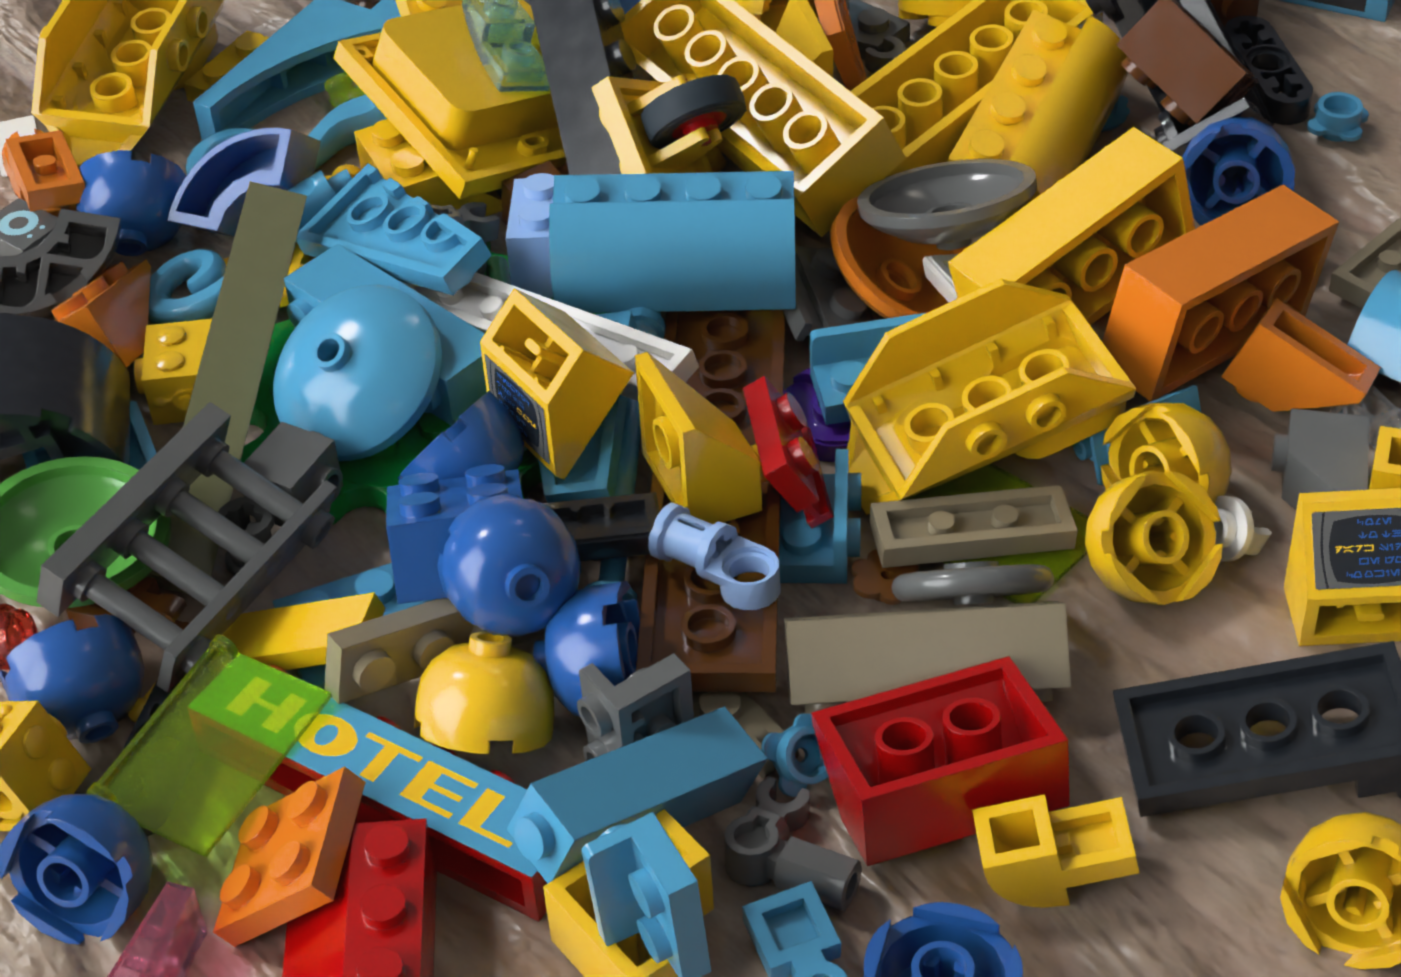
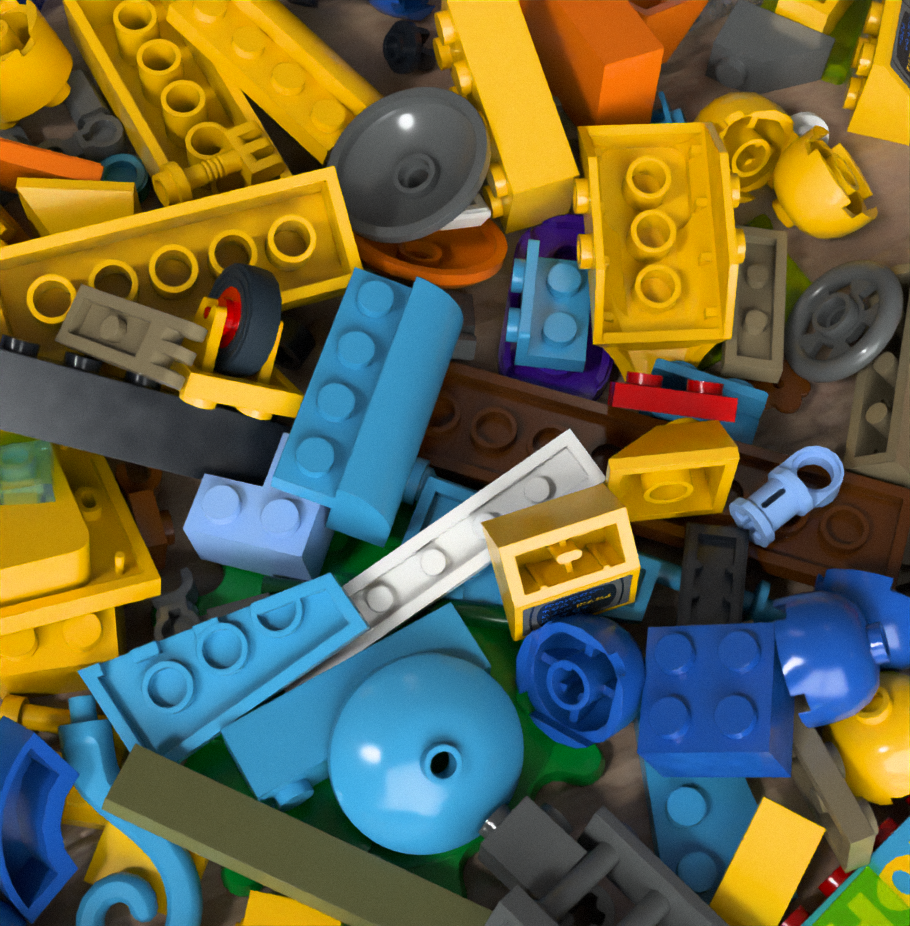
camera: 80 degrees left, 20 degrees up
(640, 54) = (129, 335): none -> dark tan hinge
(904, 114) = (243, 153): none -> yellow hinge

